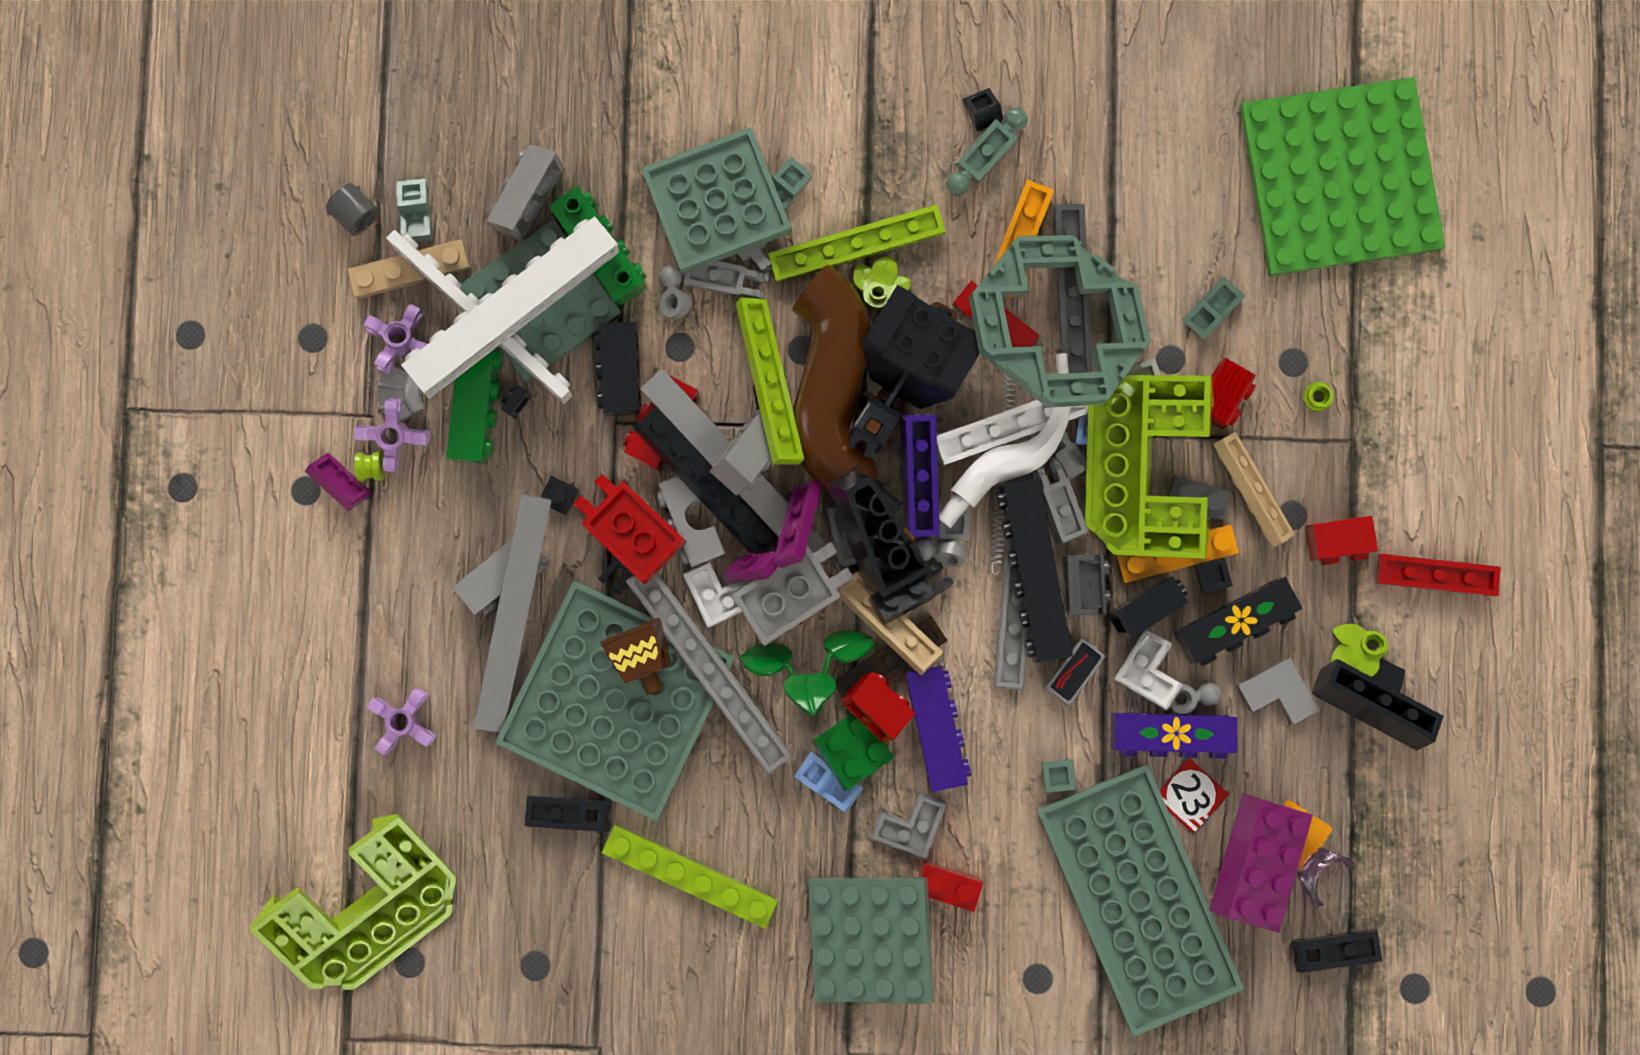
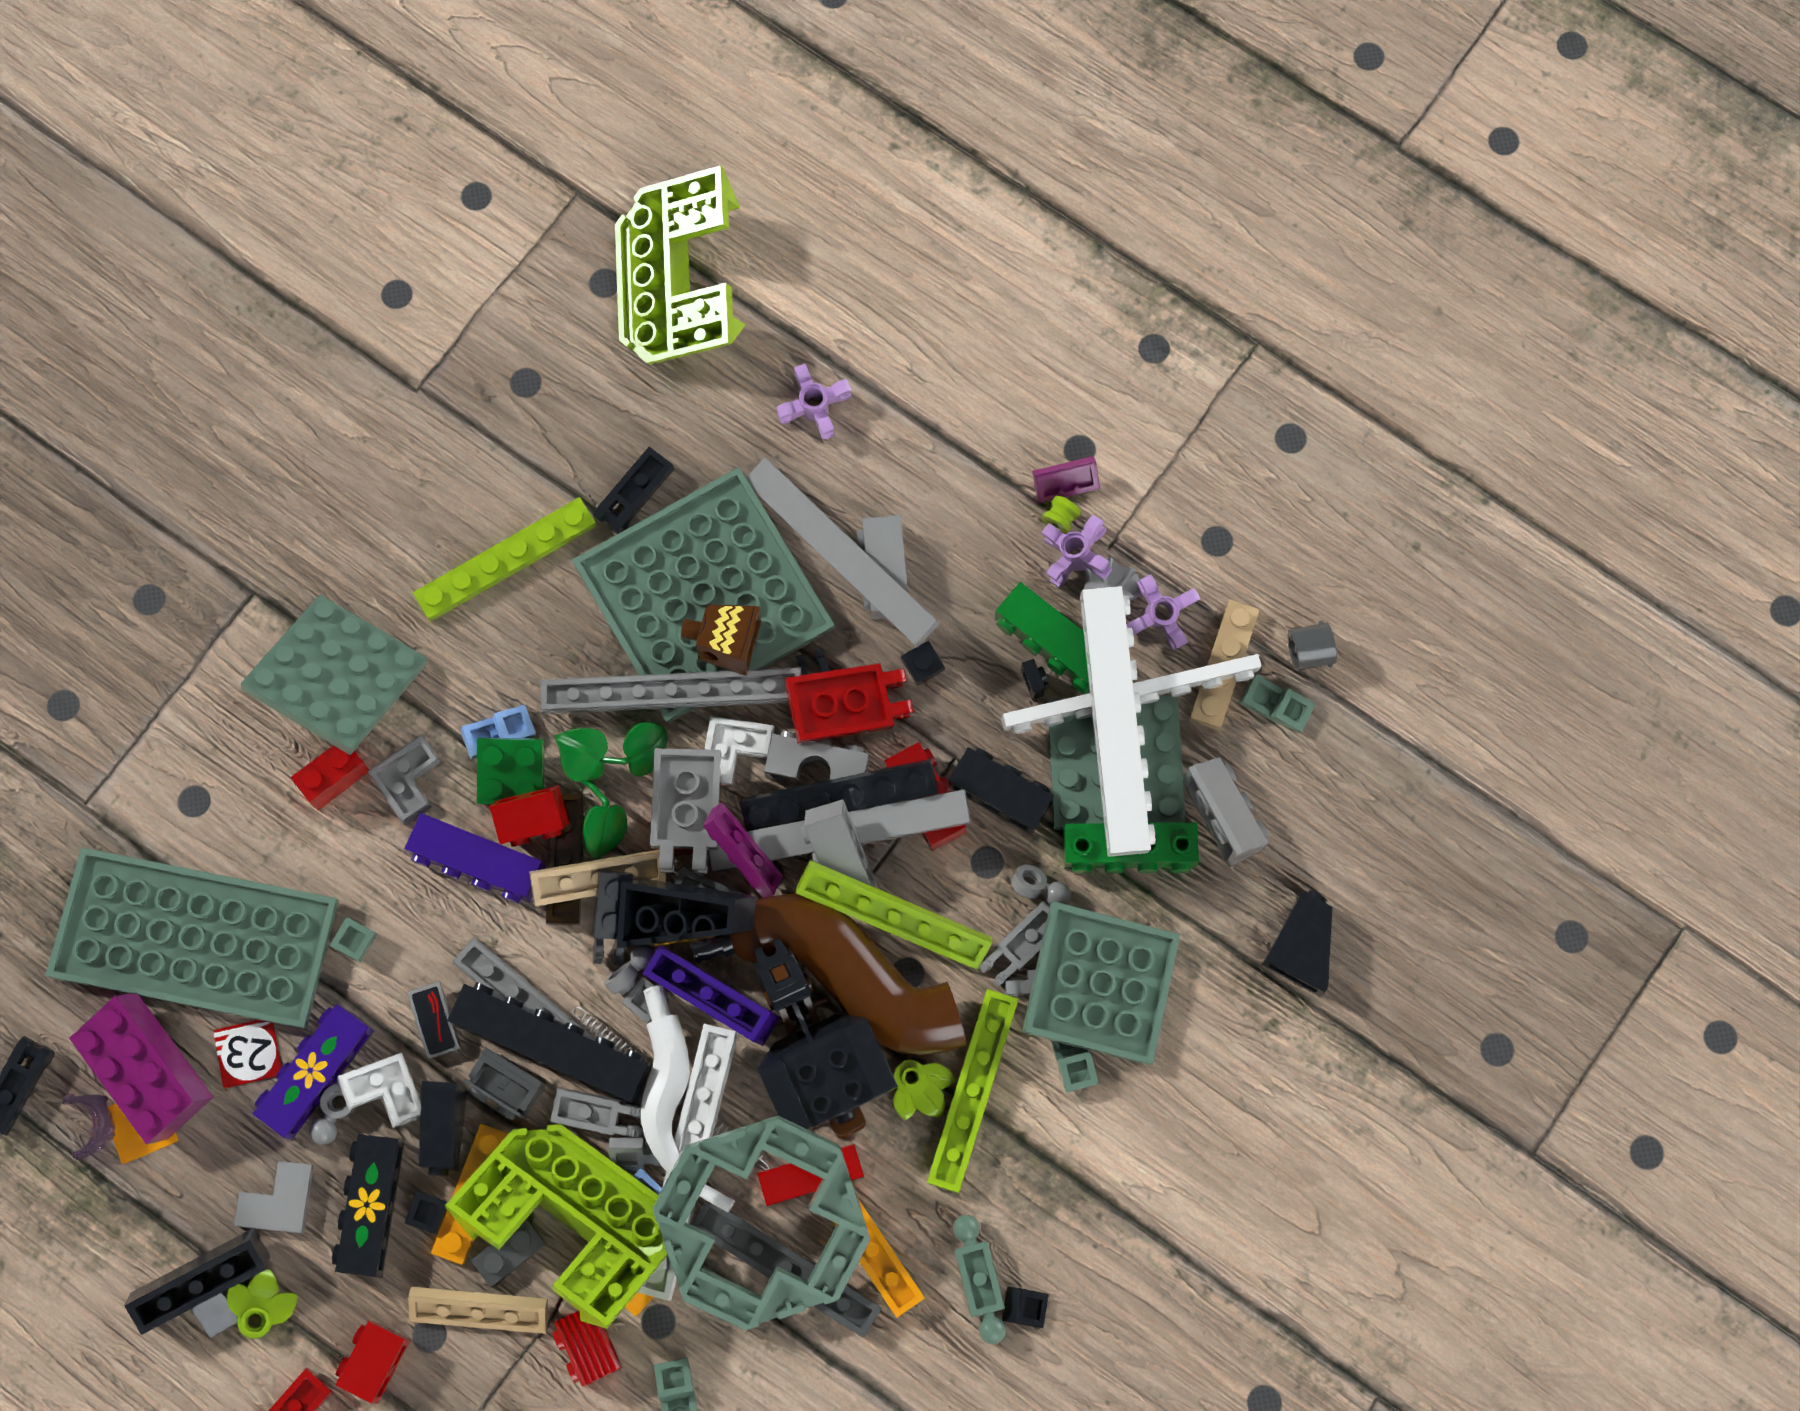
camera: 125 degrees right, 10 degrees down
(587, 75) = (1304, 944): none -> black slope
(751, 568) = (733, 785): magenta plate -> none

